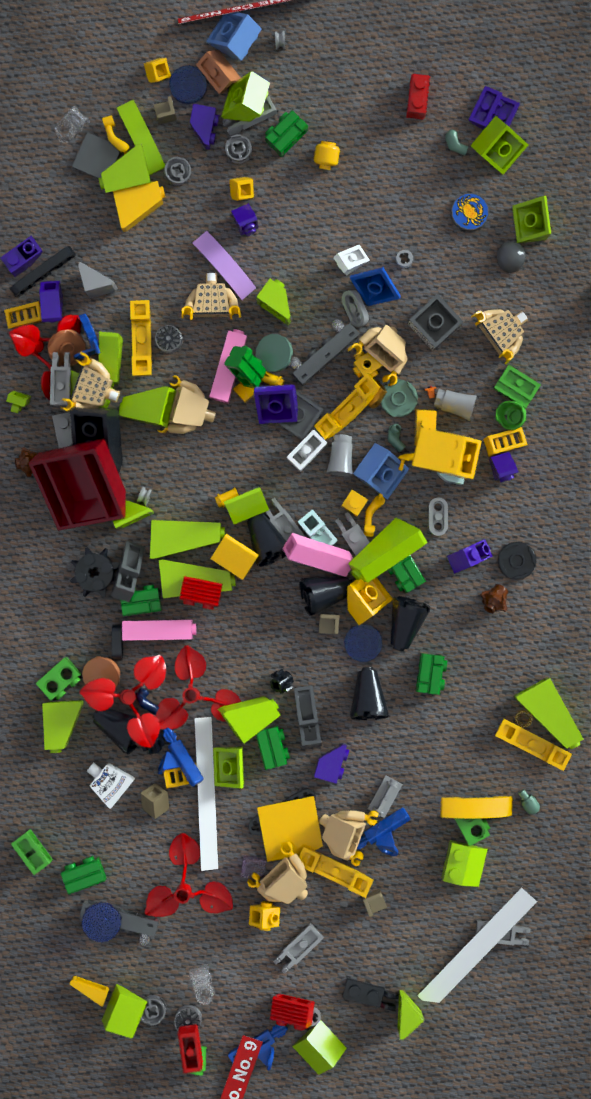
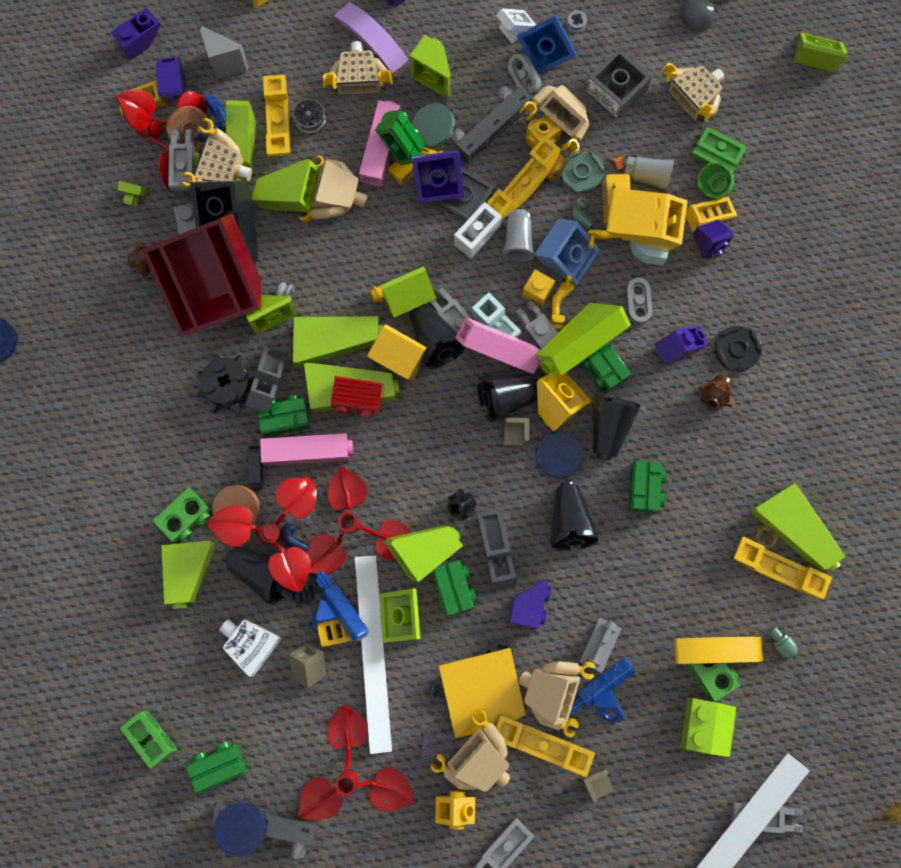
camera: 10 degrees left, 10 degrees down
(42, 271) = (160, 49): black beam -> none

